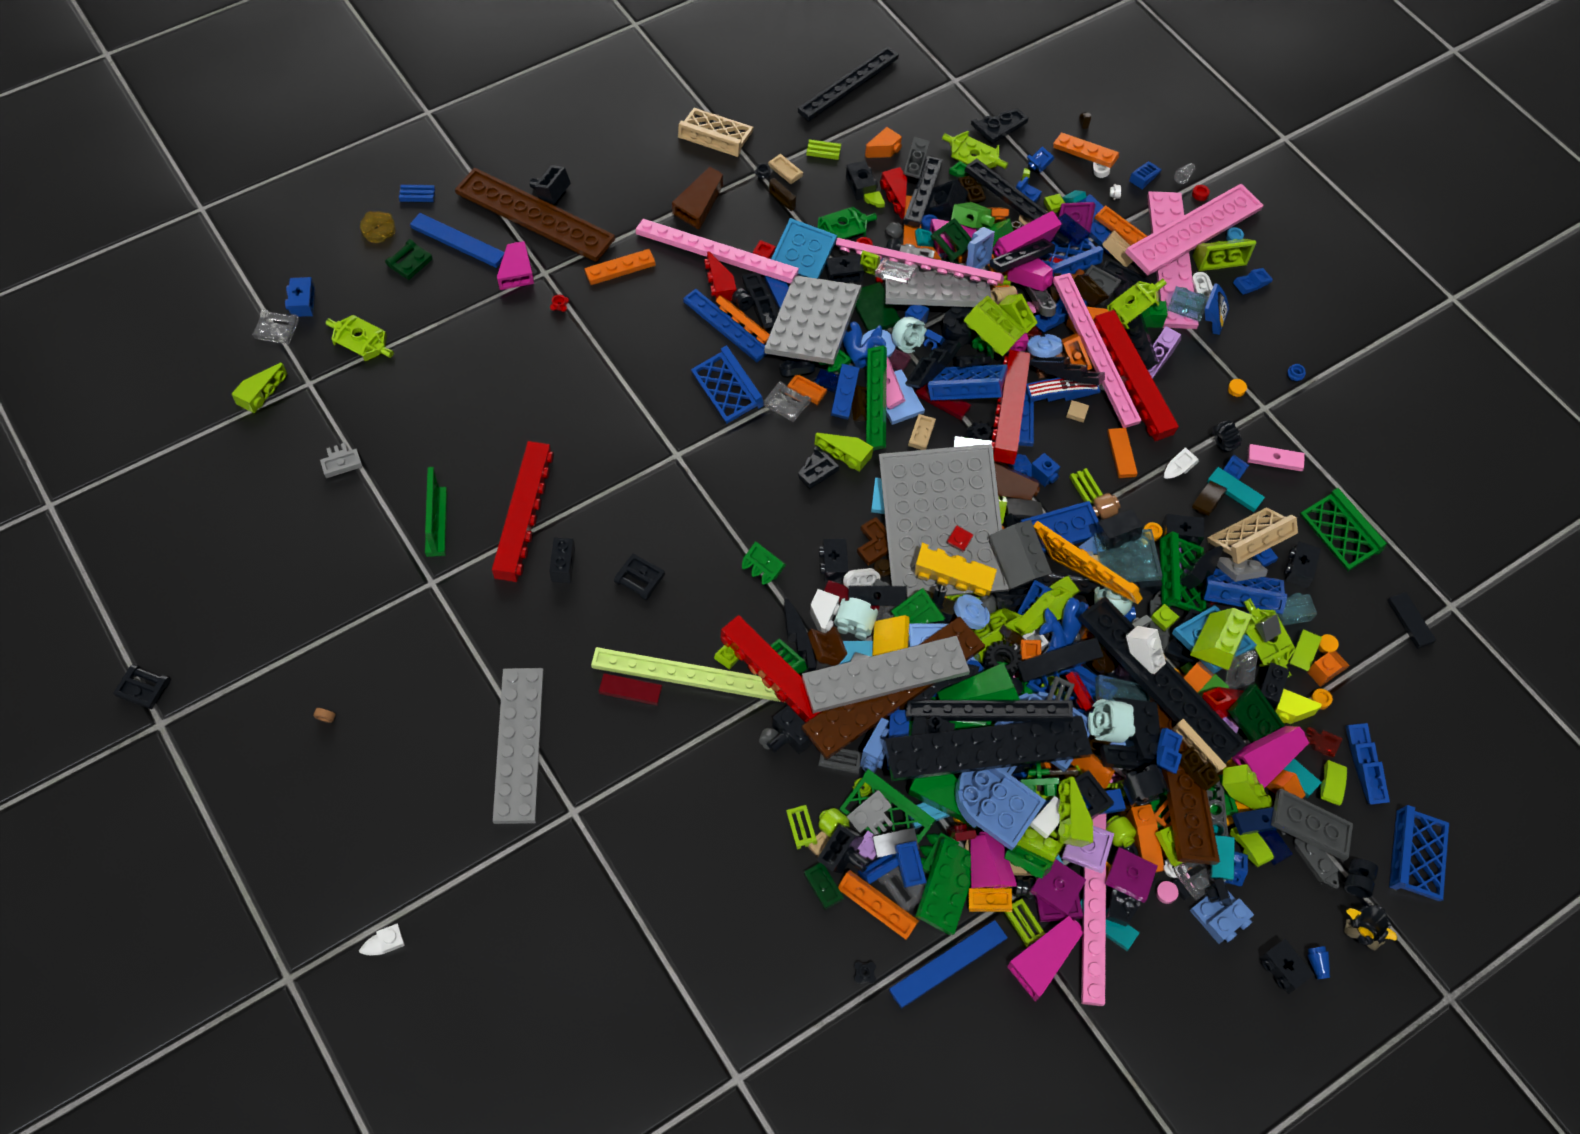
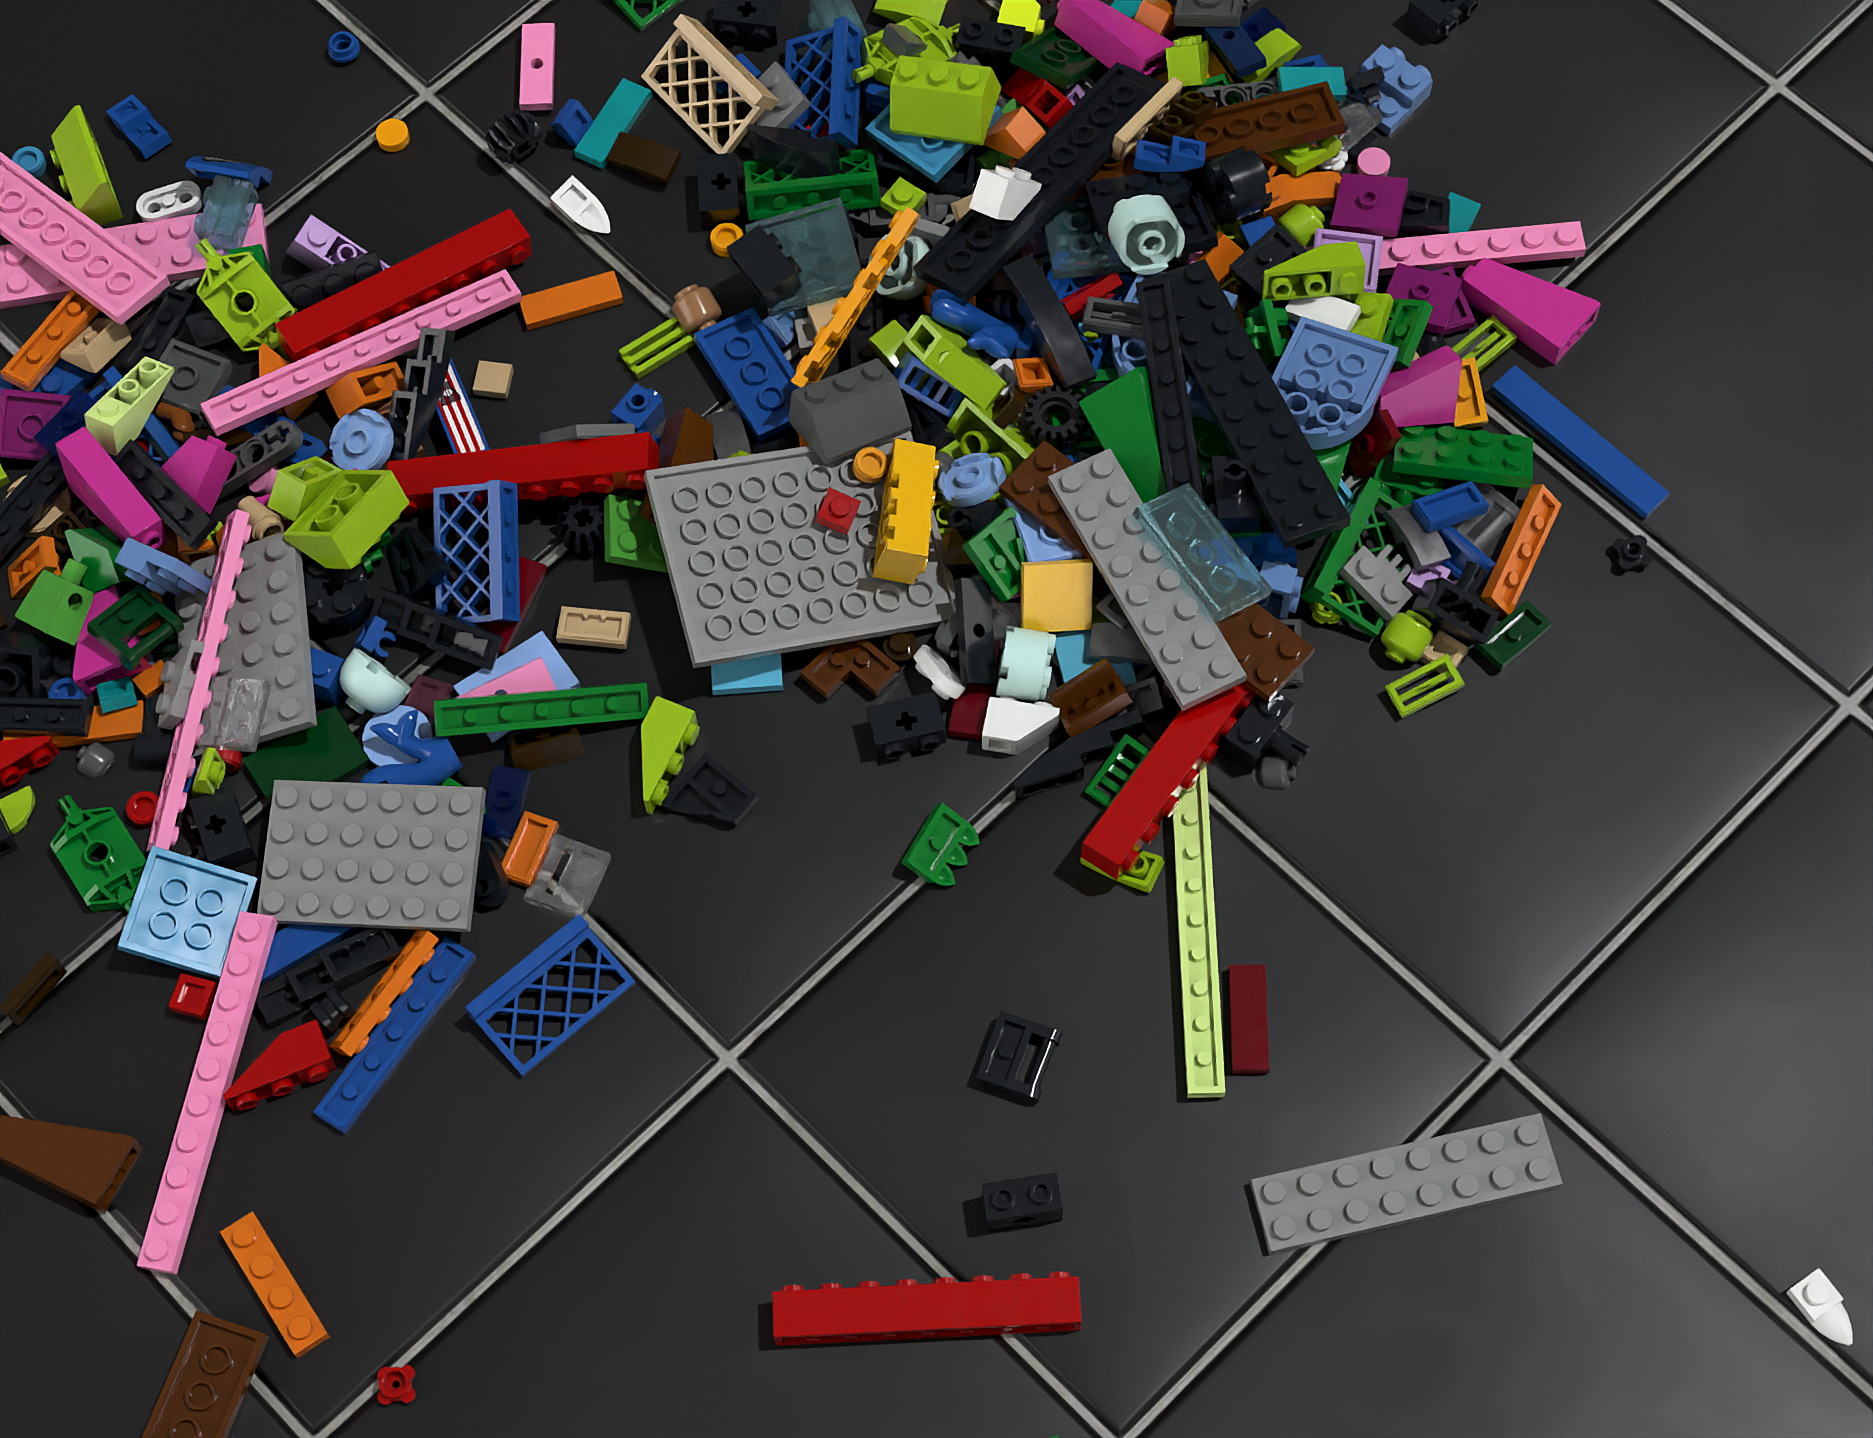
camera: 95 degrees left, 5 degrees up
(845, 391) = (529, 773): blue plate -> none
(893, 703) = (1202, 552): none -> clear light blue tile
(988, 558) = (870, 465): none -> light orange tile
(1029, 437) = (586, 431): none -> dark grey tile
(1074, 247) = (128, 405): none -> yellowish green slope
(1090, 290) = (210, 380): dark brown slope -> none

